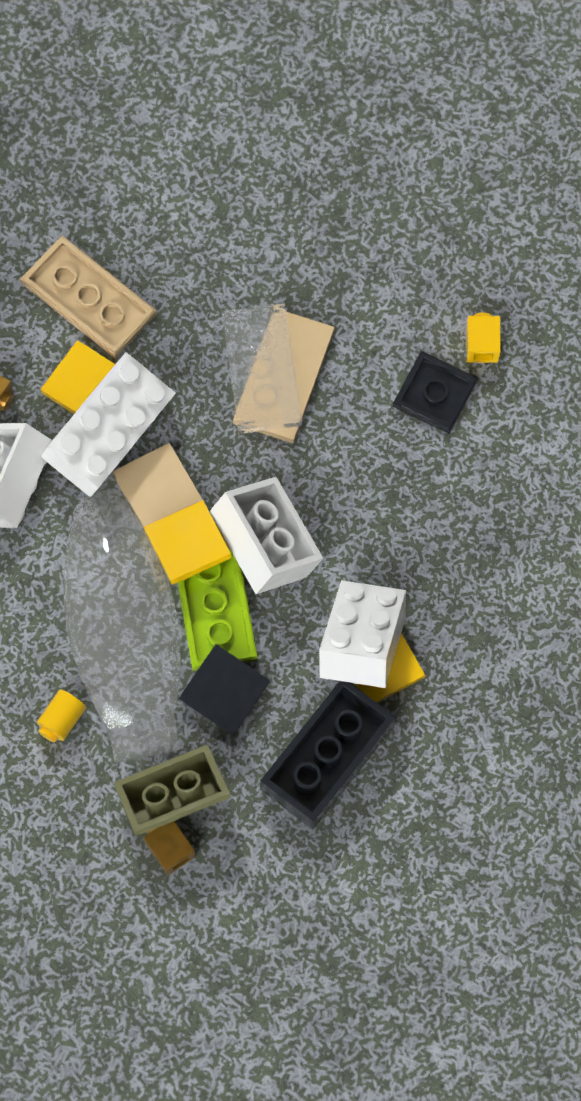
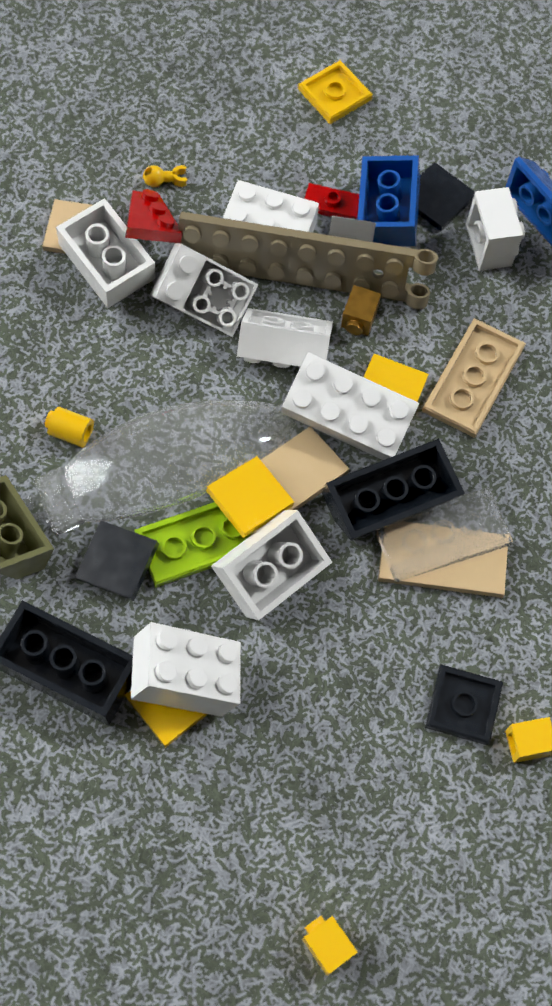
camera: 75 degrees right, 5 degrees down
(209, 404) = (392, 490): none -> black slope

